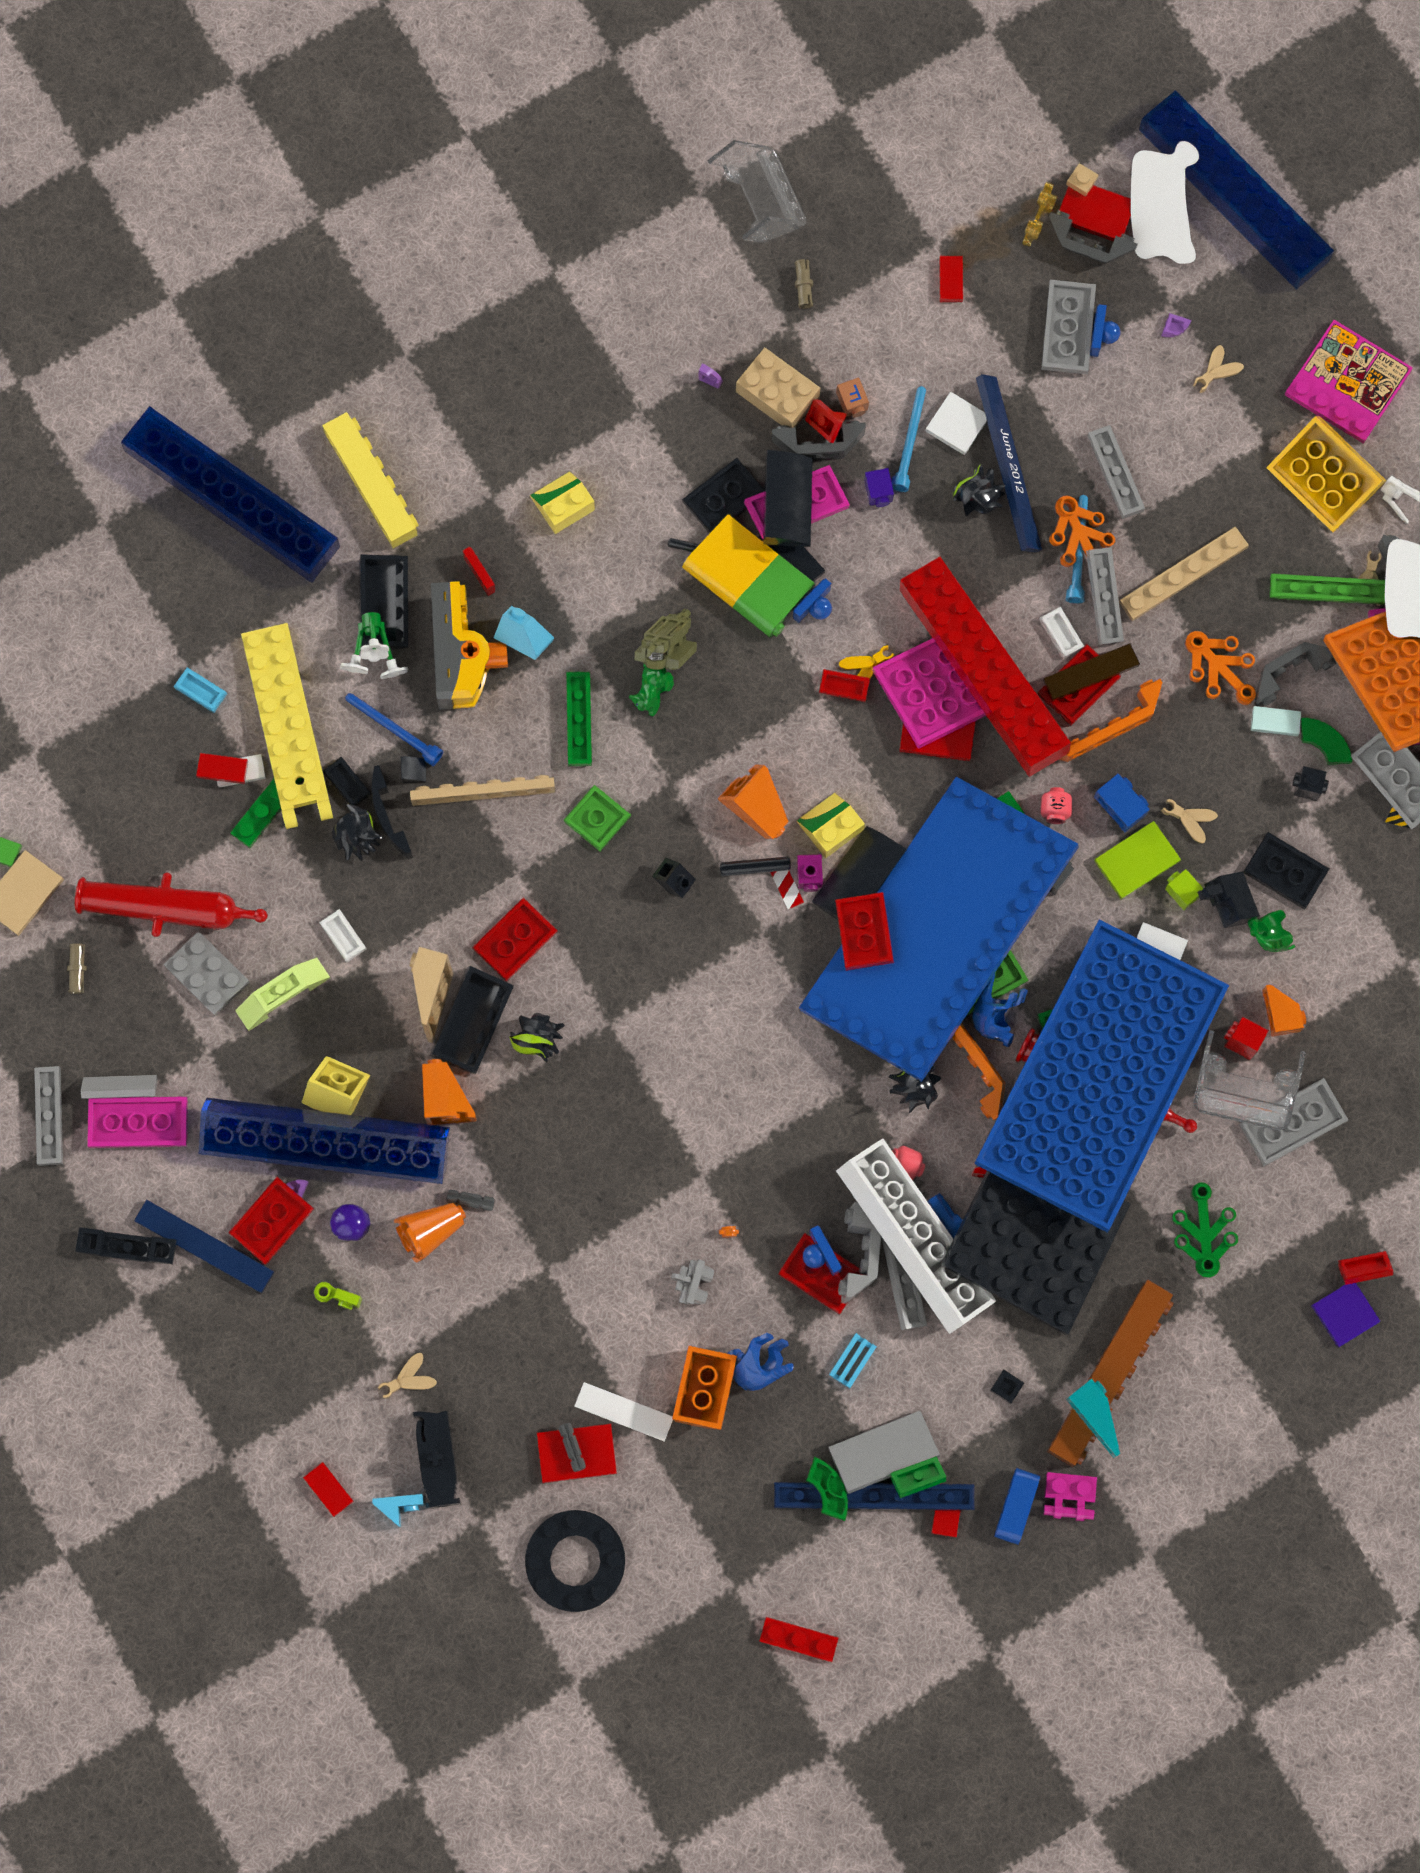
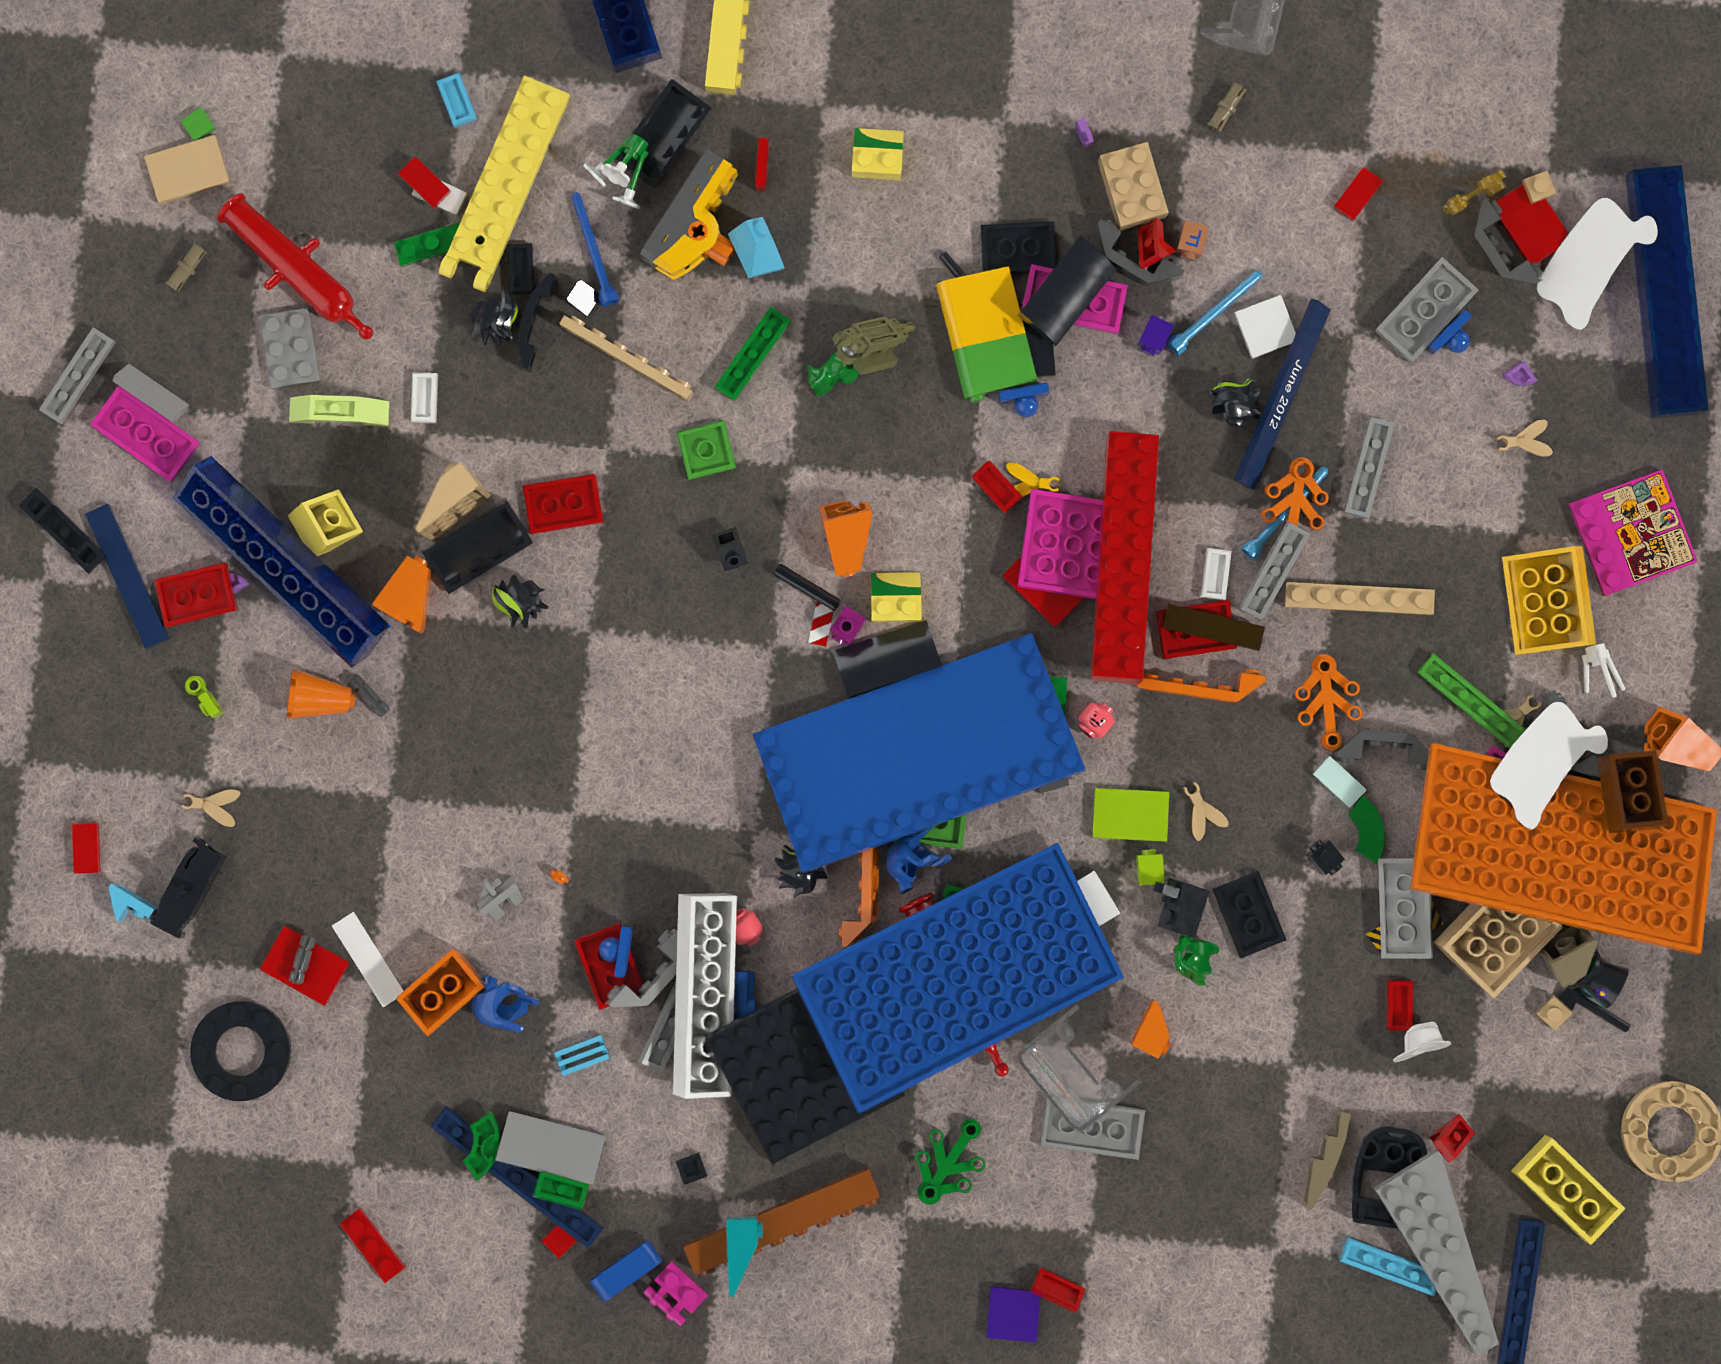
camera: 40 degrees right, 10 degrees up
(350, 1222) = (258, 643): dark purple hair -> none
(864, 931) = (853, 710): red tile -> none
(1122, 802) = (1153, 757): blue brick -> none
(1245, 1037) = (1102, 1031): red brick -> none

